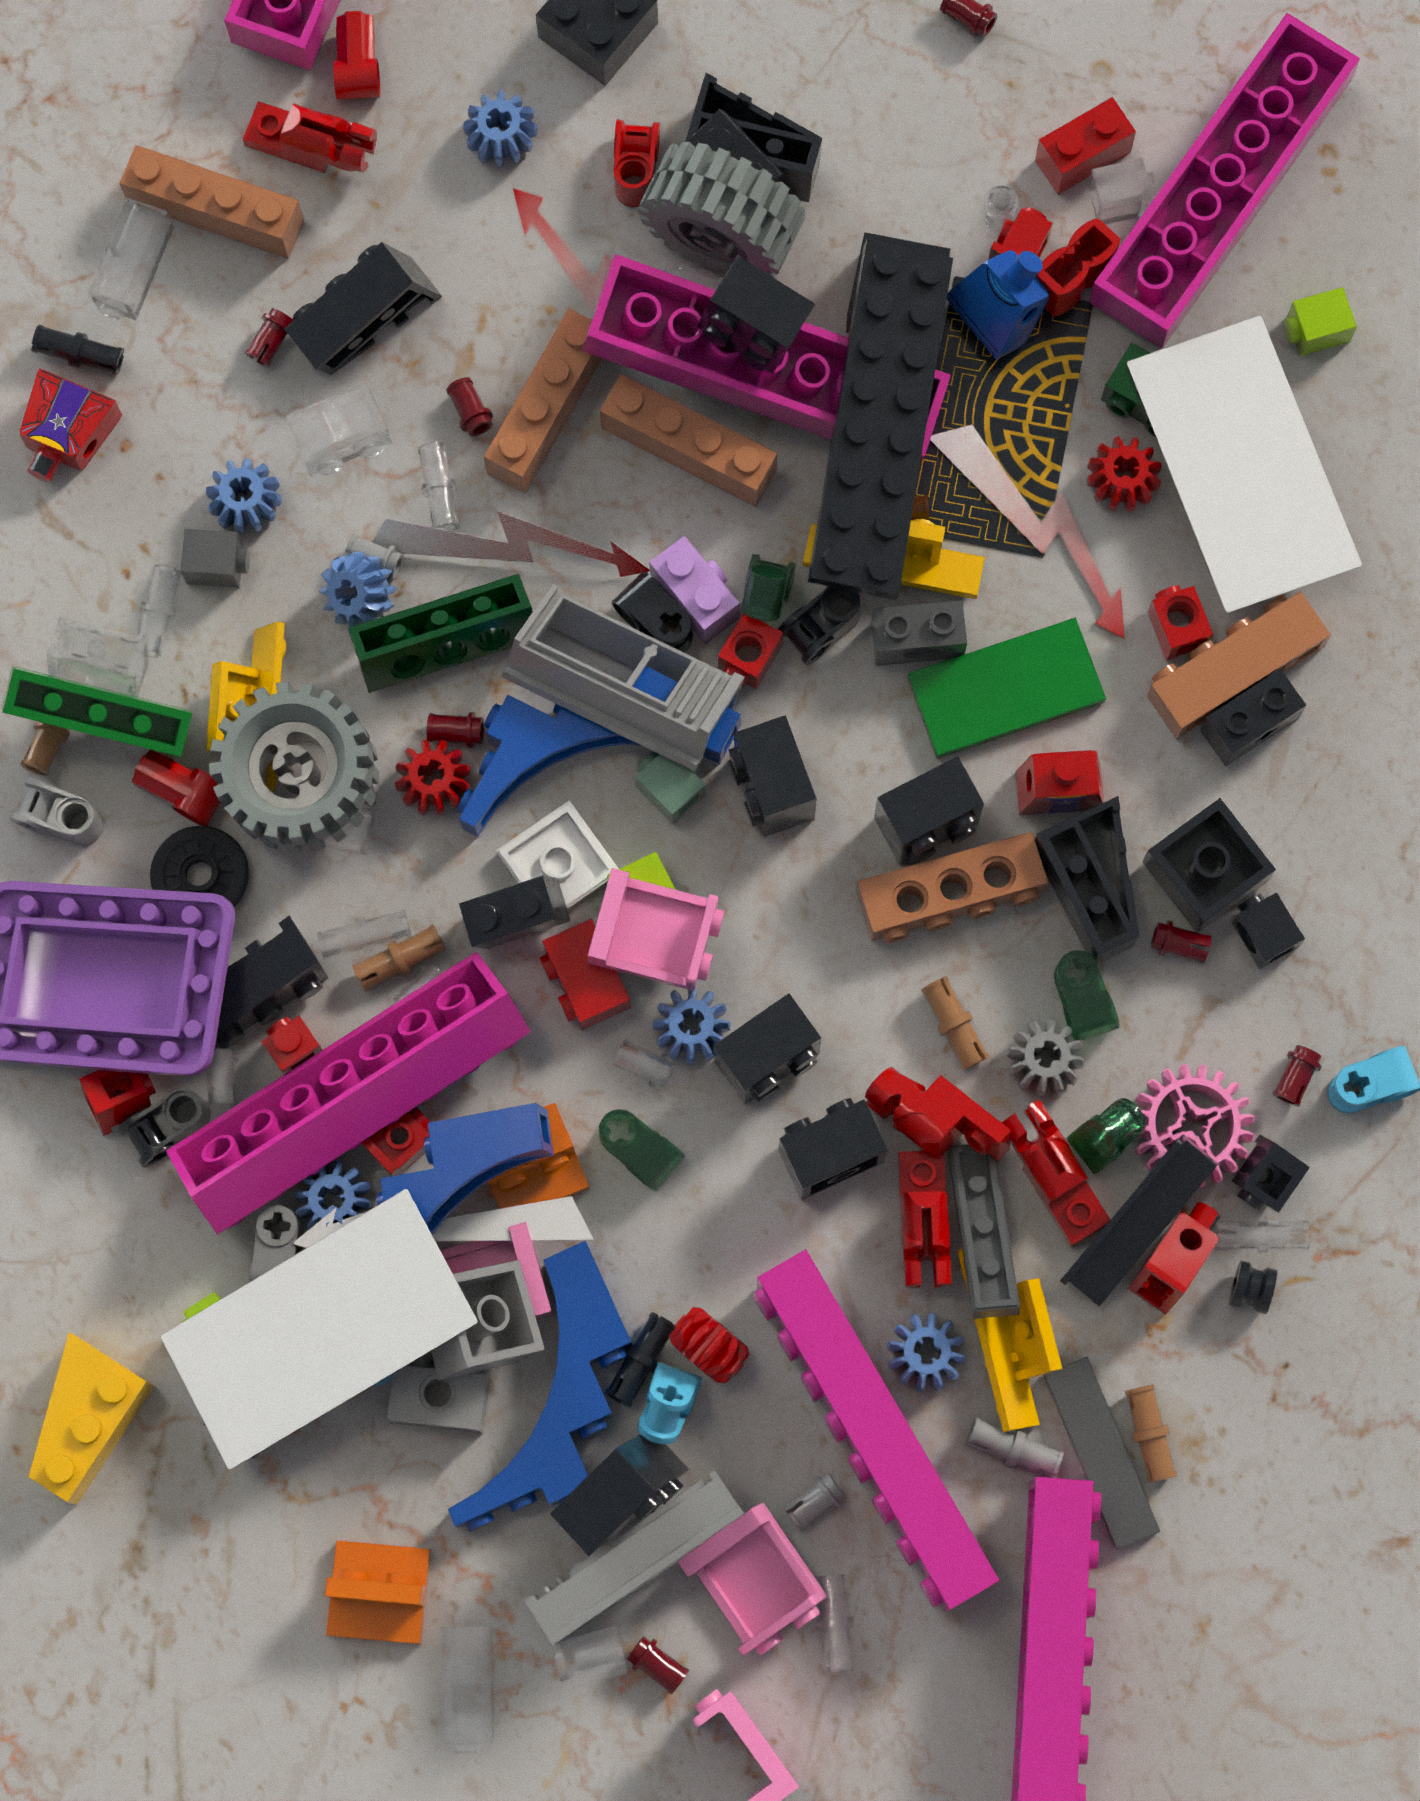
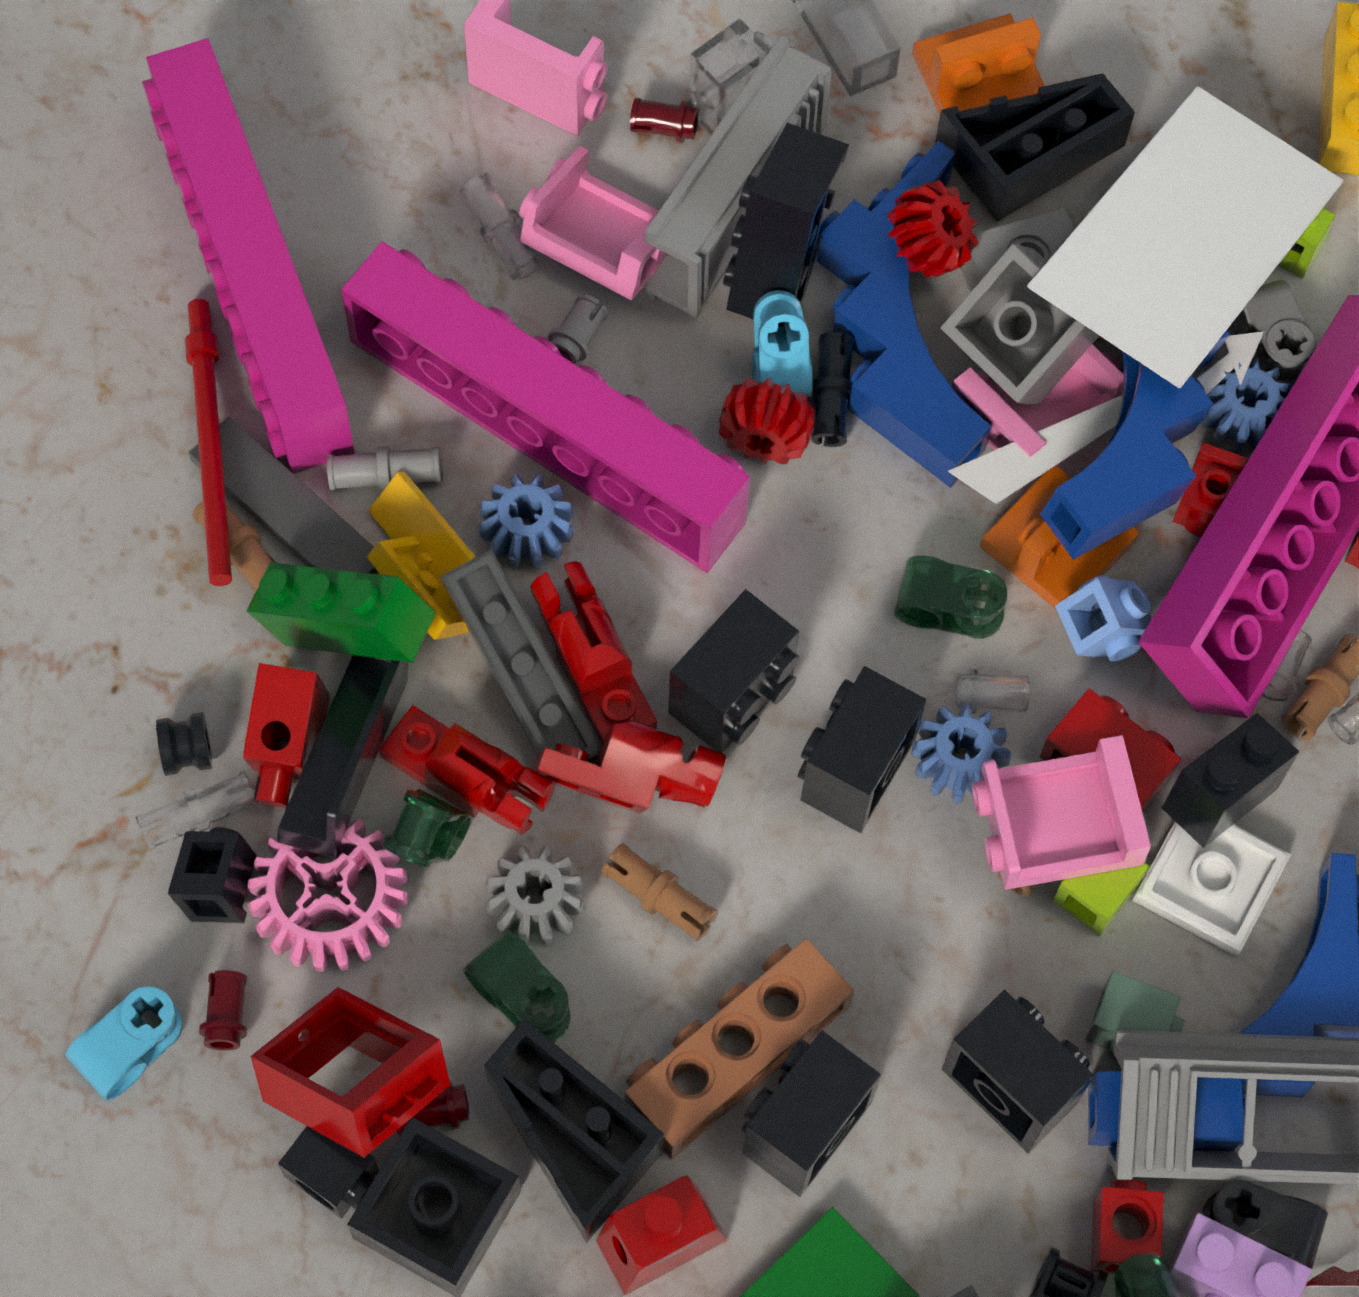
camera: 150 degrees right, 10 degrees down
(377, 1495) = (1034, 141): none -> black wedge
(506, 1437) = (932, 229): none -> red gear
(535, 1073) = (1106, 618): none -> light blue brick
(1103, 1321) = (341, 611): none -> green brick
(1116, 1619) = (202, 354): none -> red bar
(1213, 936) = (381, 1103): none -> red window

